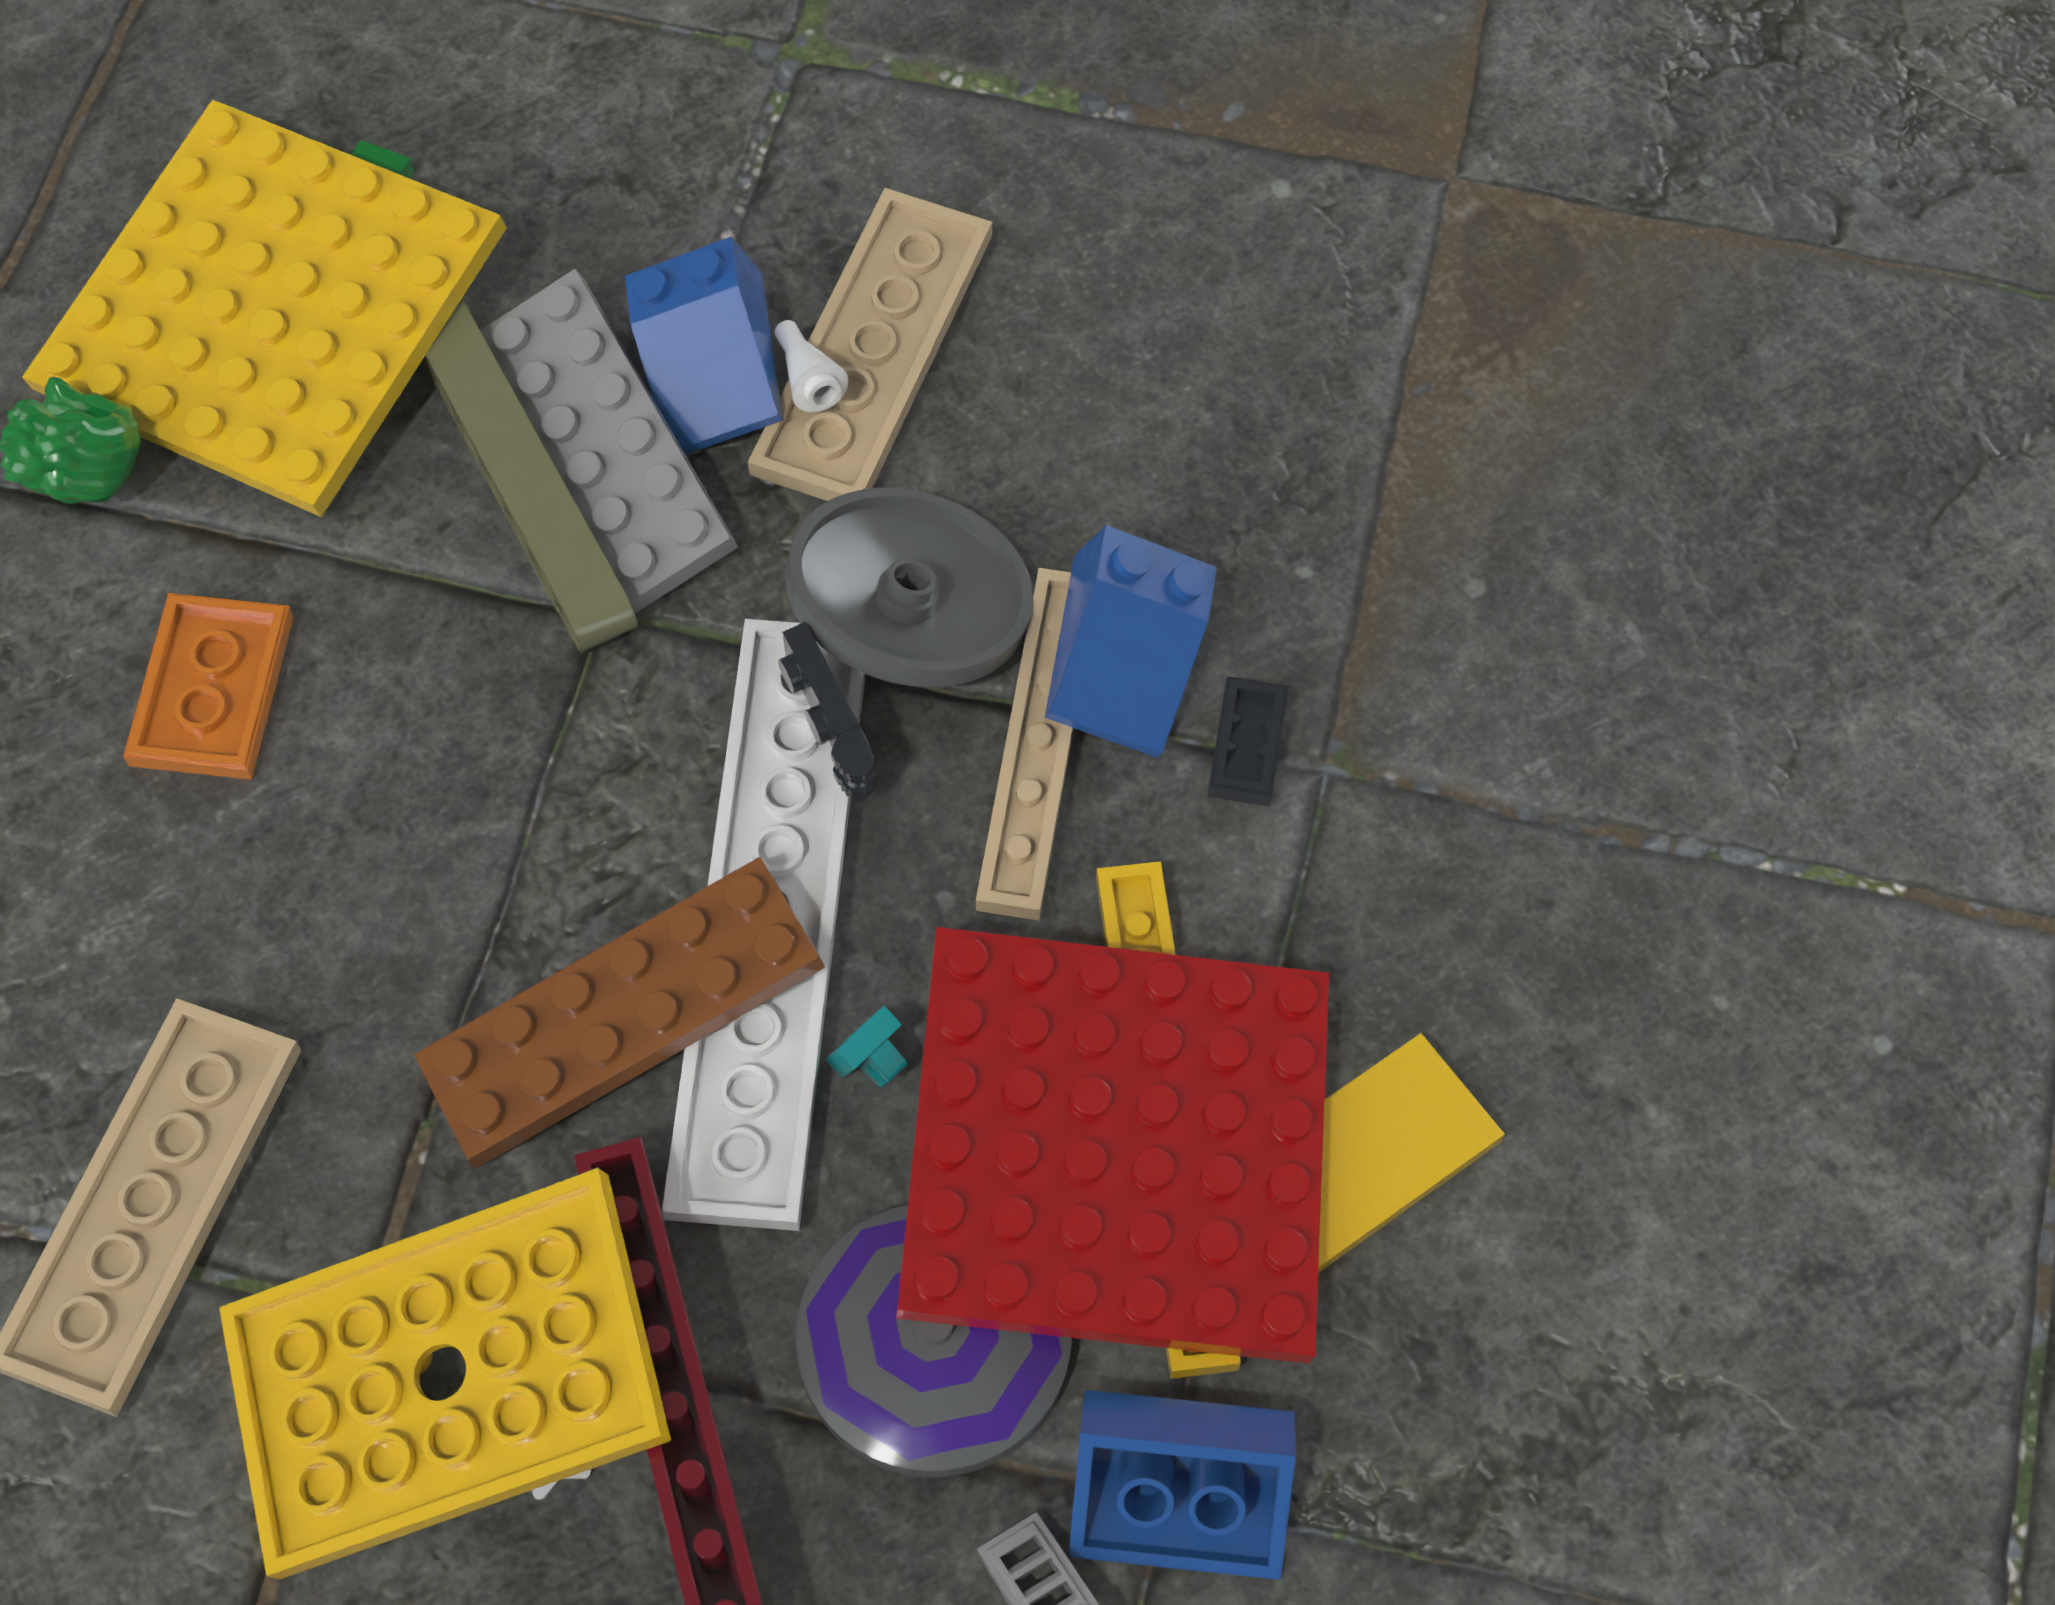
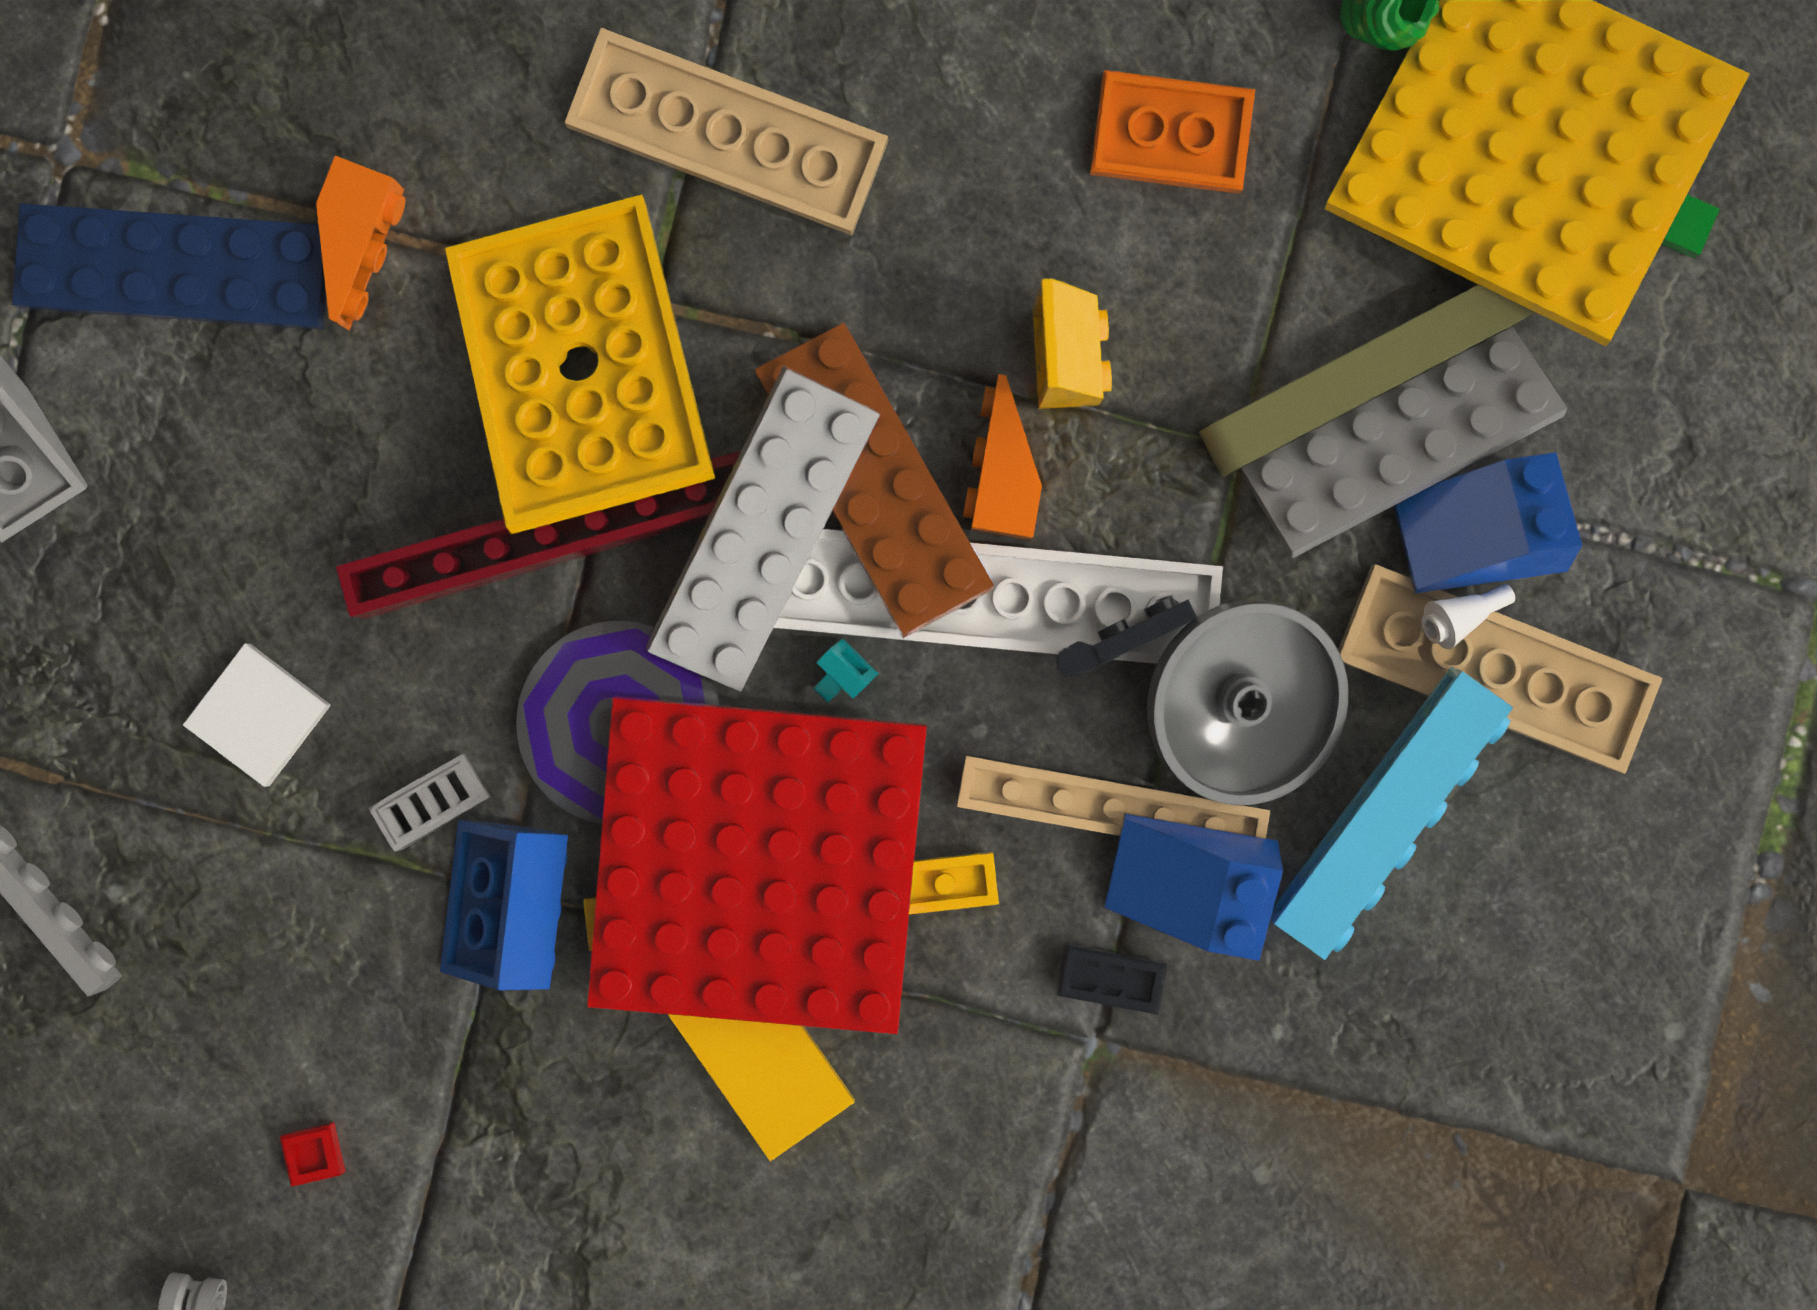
camera: 90 degrees right, 25 degrees up
(466, 788) = (1068, 346): none -> yellow slope
(622, 857) = (1008, 480): none -> orange slope
(679, 1125) = (762, 529): none -> light grey plate
(1032, 435) = (1390, 813): none -> medium azure brick

